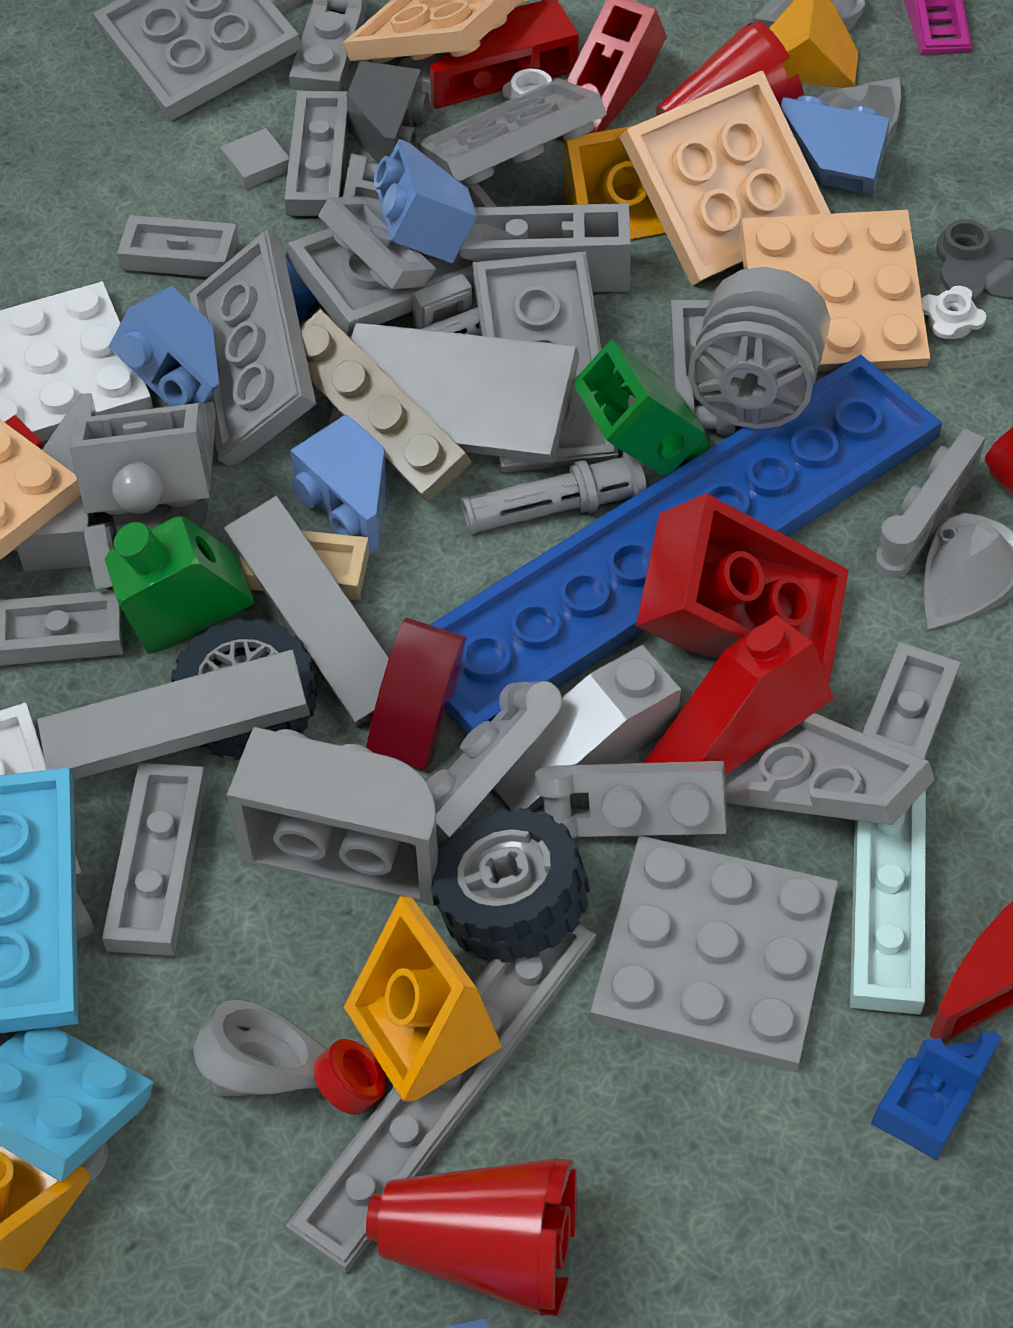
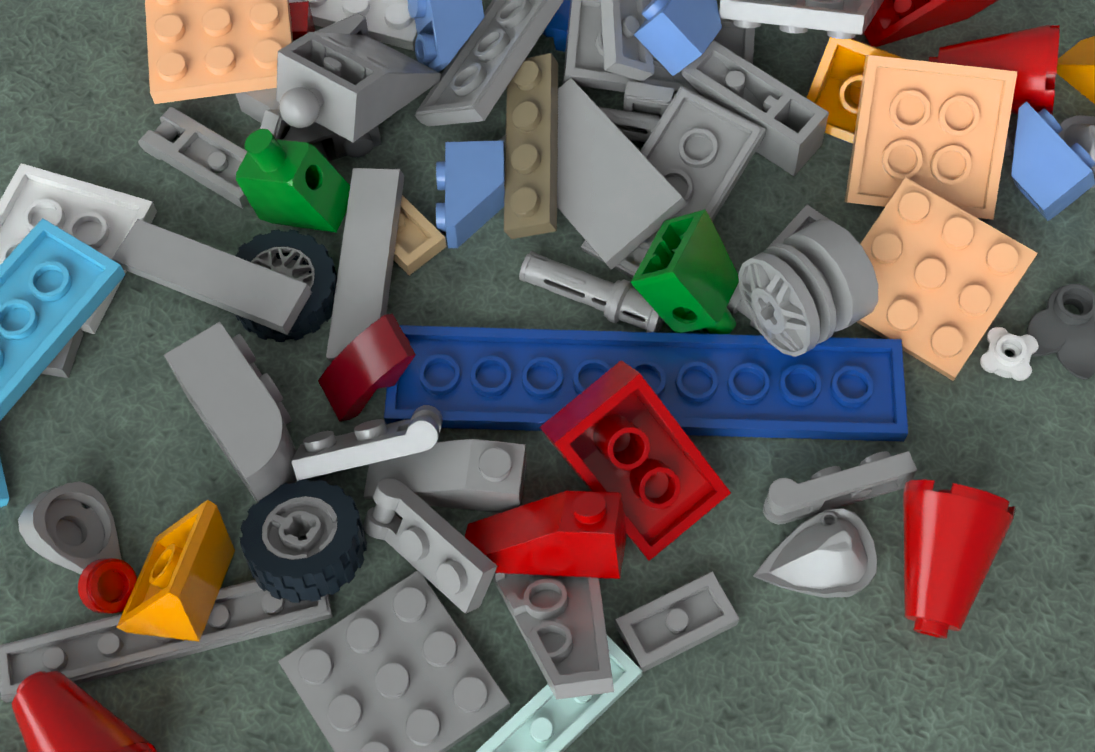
camera: 40 degrees right, 10 degrees up
(155, 860) = (132, 359): light grey plate -> none

